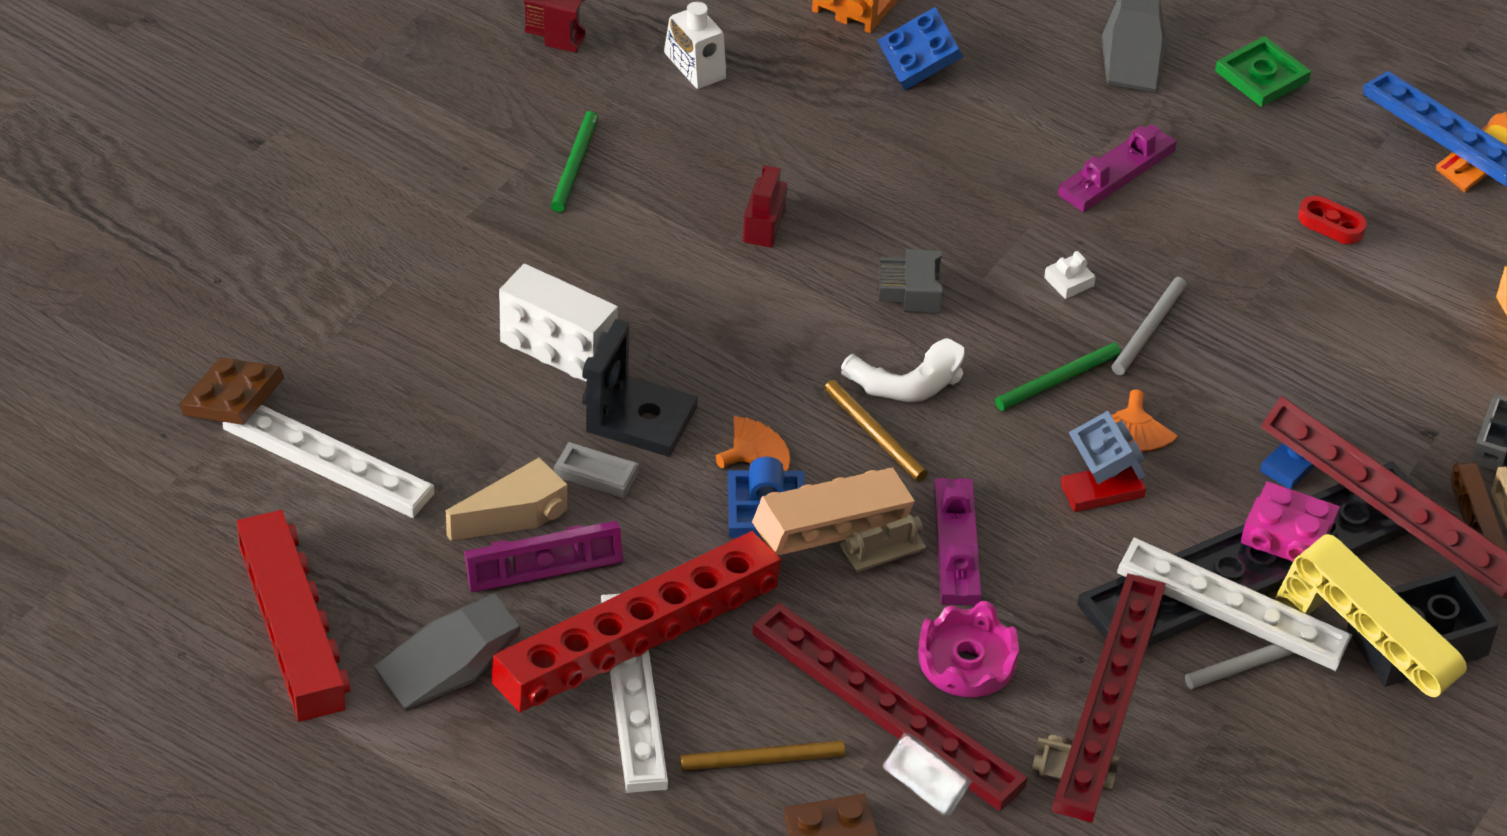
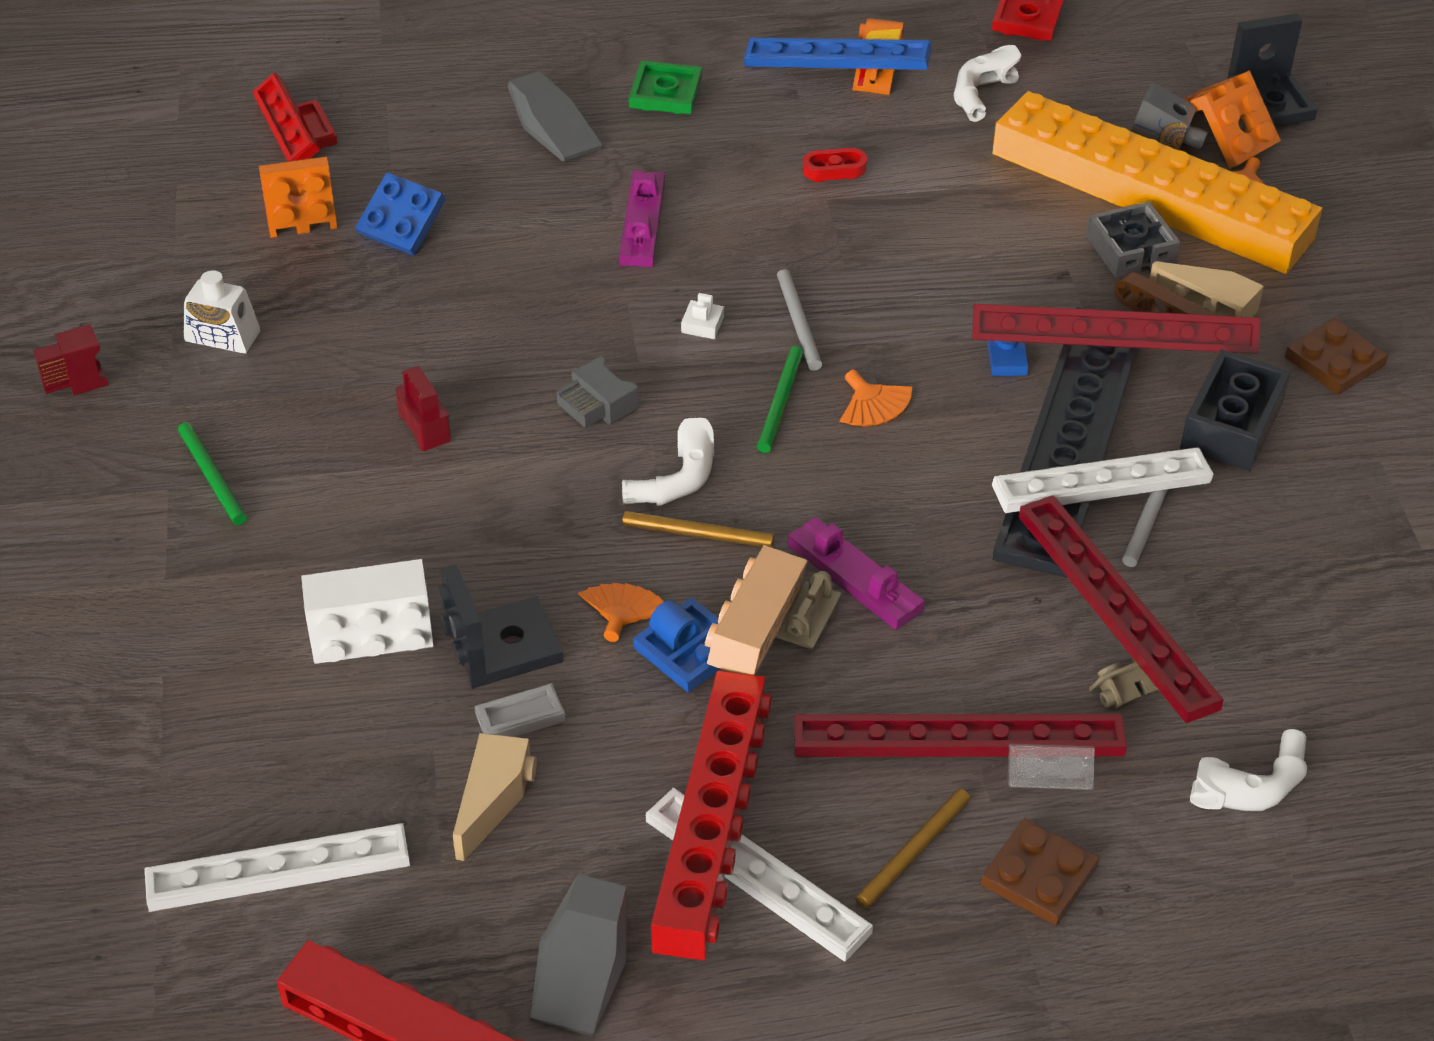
camera: 40 degrees left, 0 degrees up
(231, 391) = (129, 870): reddish brown plate -> none
(543, 556) = (557, 828): magenta hinge -> none
(972, 631) = (963, 630): dark pink plate -> none
(1086, 493) = (907, 459): red tile -> none
(1107, 448) = (889, 425): sand blue bracket -> none
(1287, 521) = (1074, 396): dark pink plate -> none
(1338, 576) = (1215, 411): light yellow beam -> none

